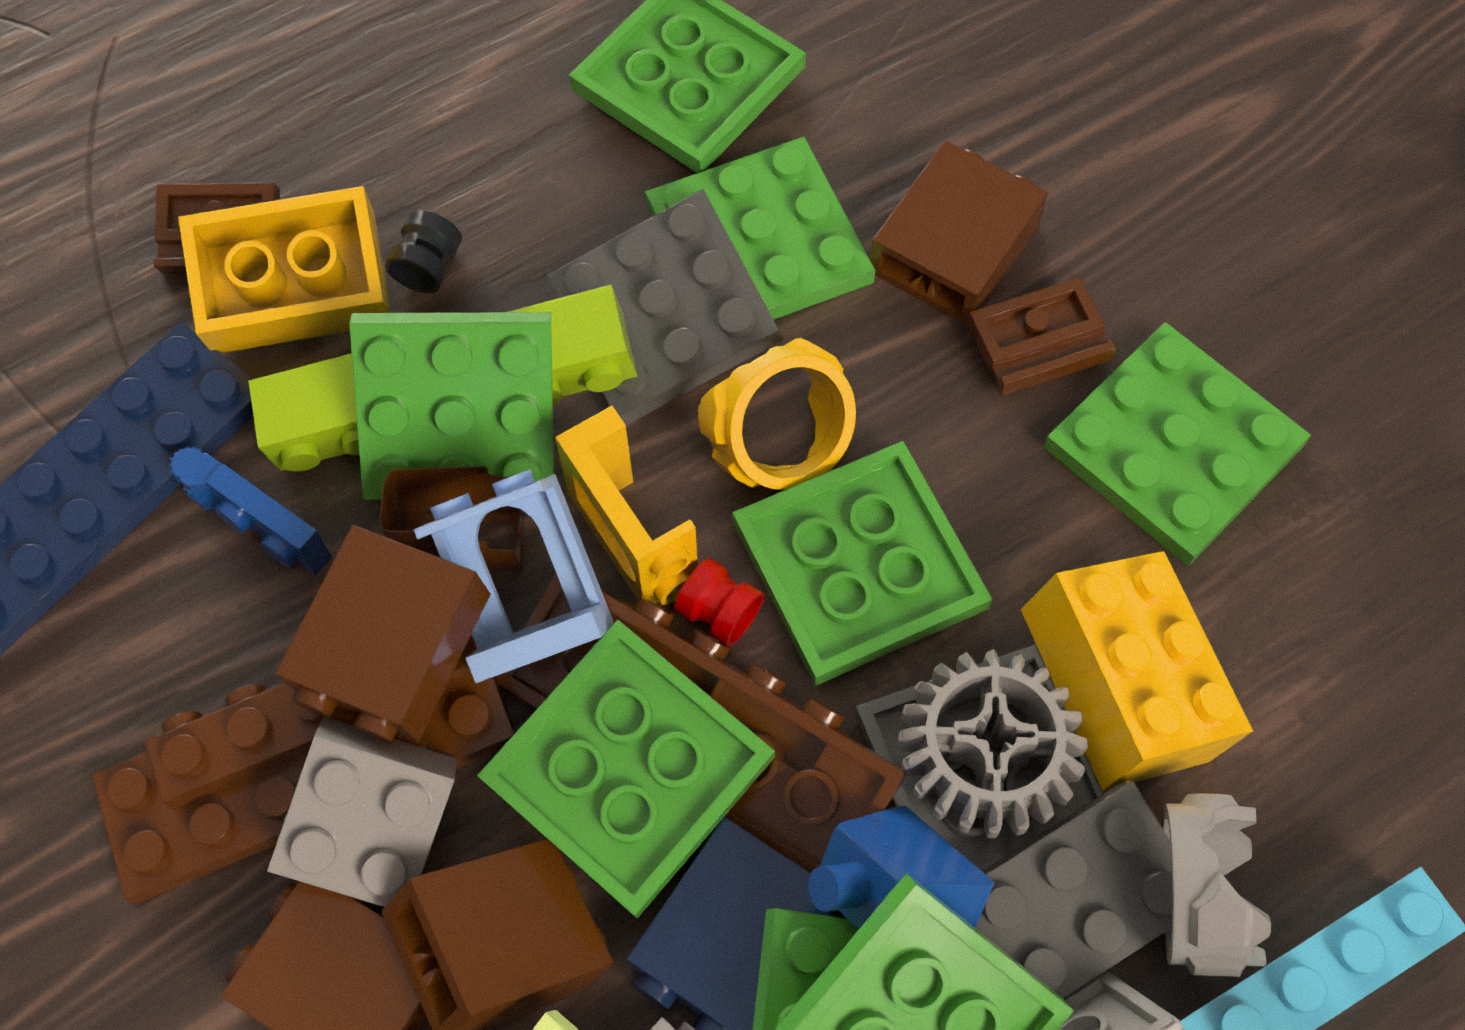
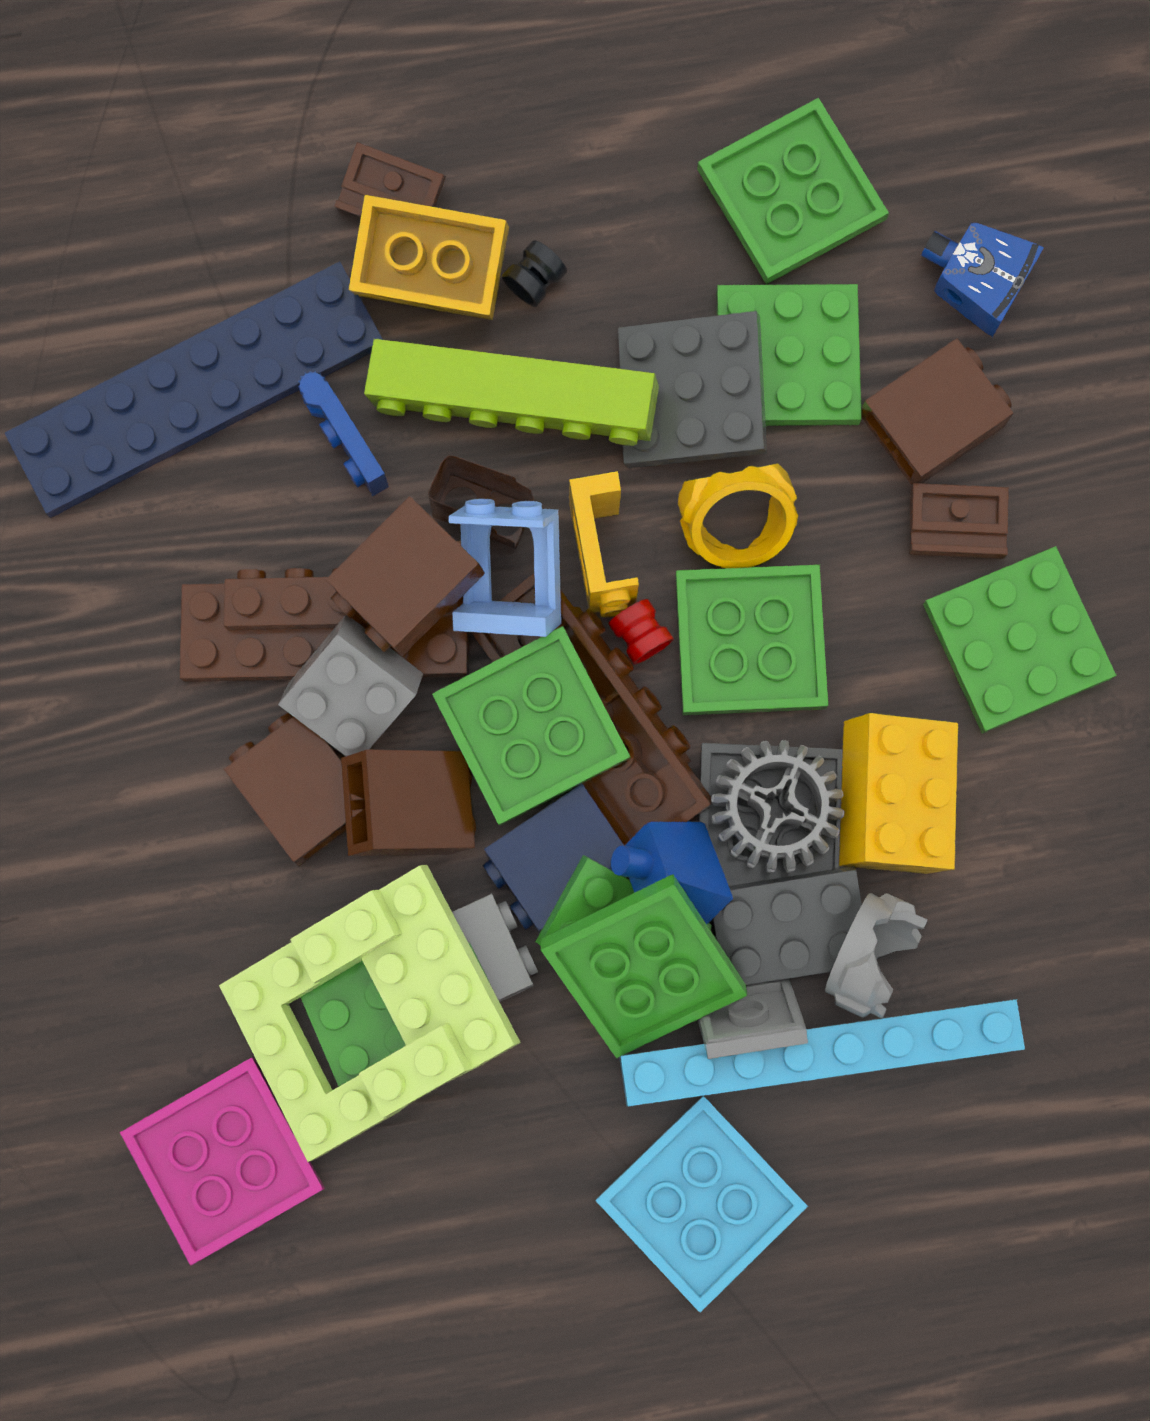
camera: 20 degrees right, 15 degrees up
(452, 393) = (512, 418): bright green plate -> none
(937, 76) = (981, 272): none -> blue torso

